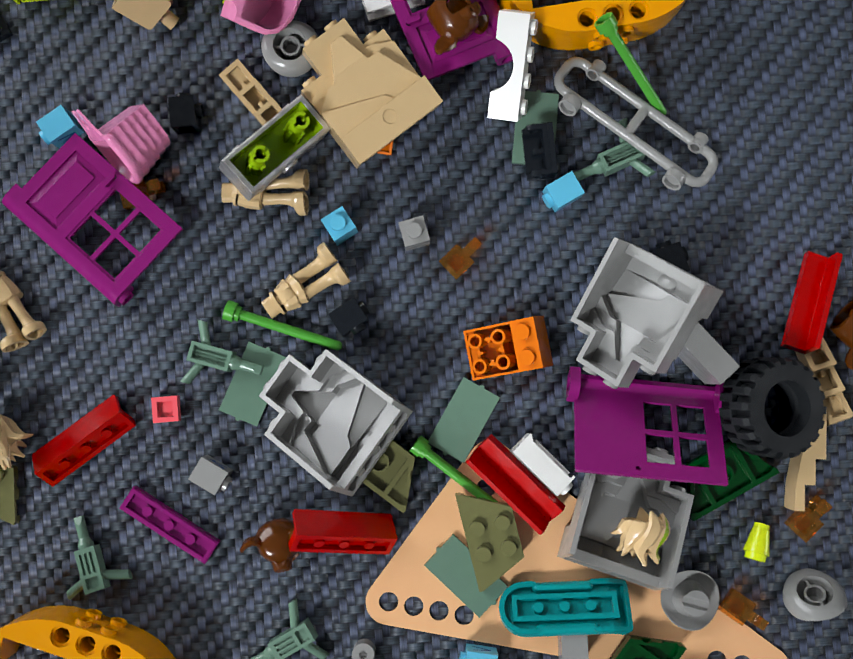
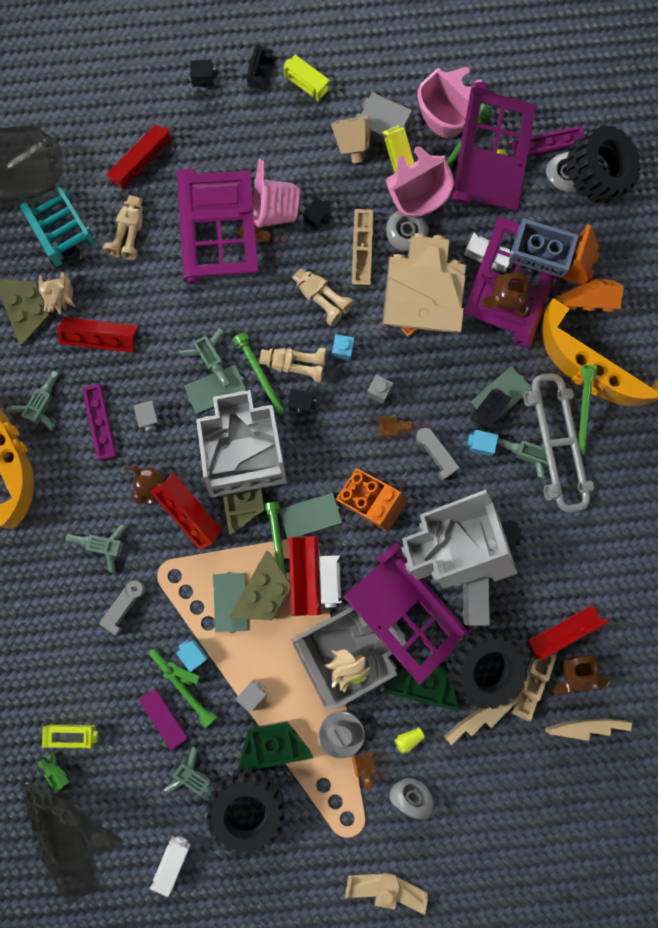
camera: 45 degrees right, 5 degrees down
(58, 126) = (244, 159): medium azure brick -> none
(166, 409) = (157, 358): coral plate -> none
(274, 148) = (347, 273): lime piece -> none
(516, 32) = (535, 331): white arch -> none
(528, 242) = (441, 457): none -> light grey leg
(567, 608) = (268, 671): teal piece -> none
(807, 522) = (447, 754): clear orange plate -> none

